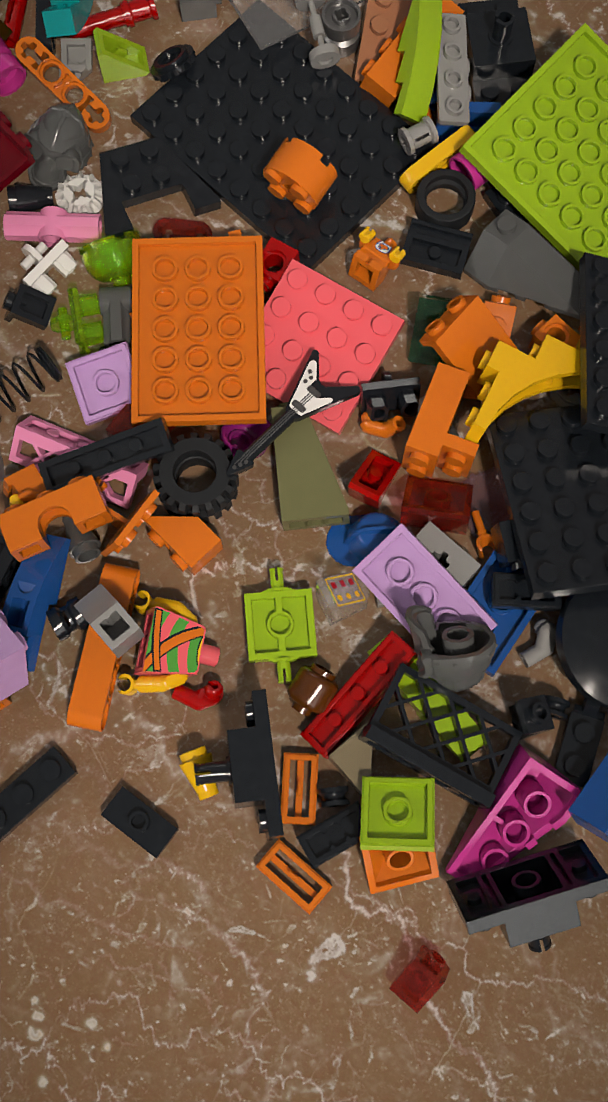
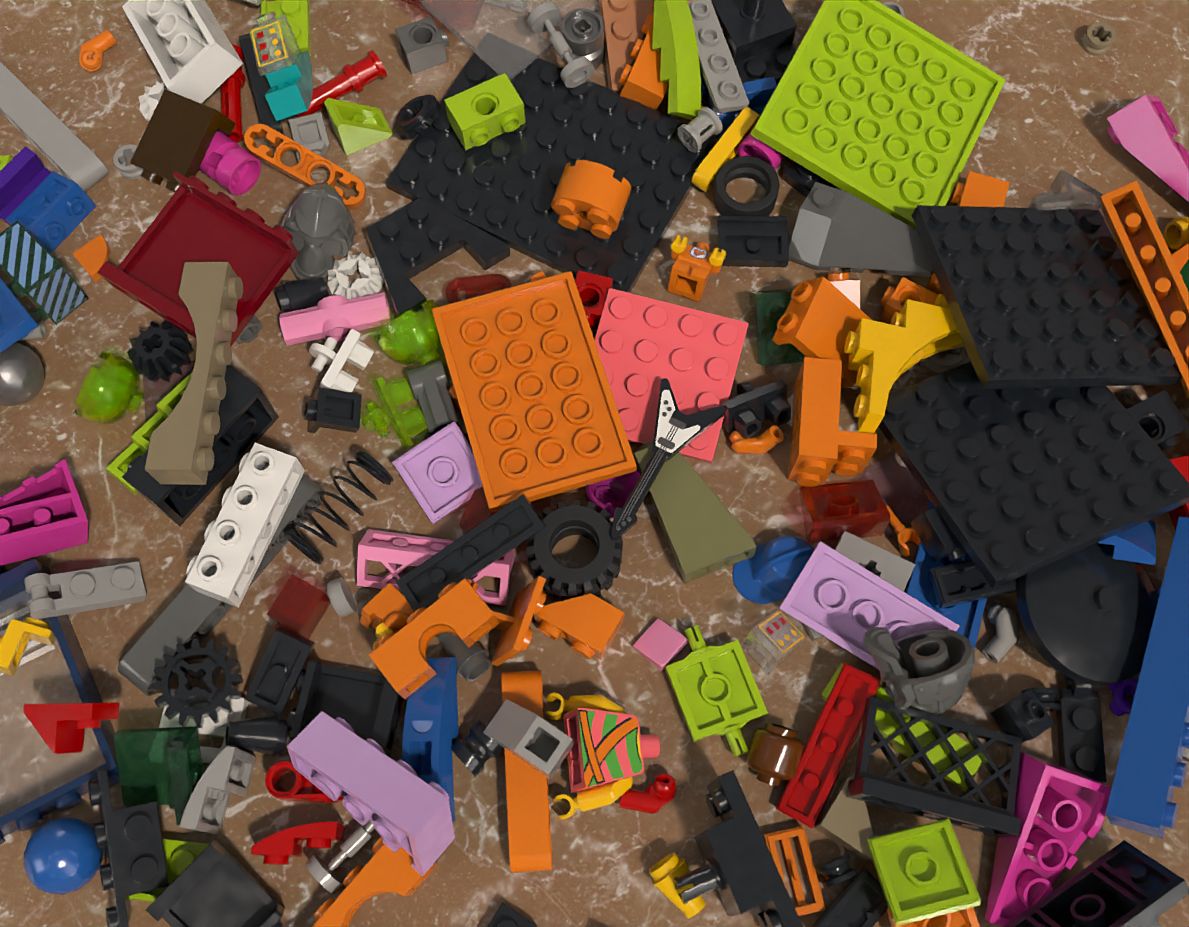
camera: 15 degrees left, 5 degrees down
(240, 60) = (493, 97): none -> lime brick
(246, 575) = (660, 644): none -> bright pink slope
(373, 479) = (767, 502): red slope -> none

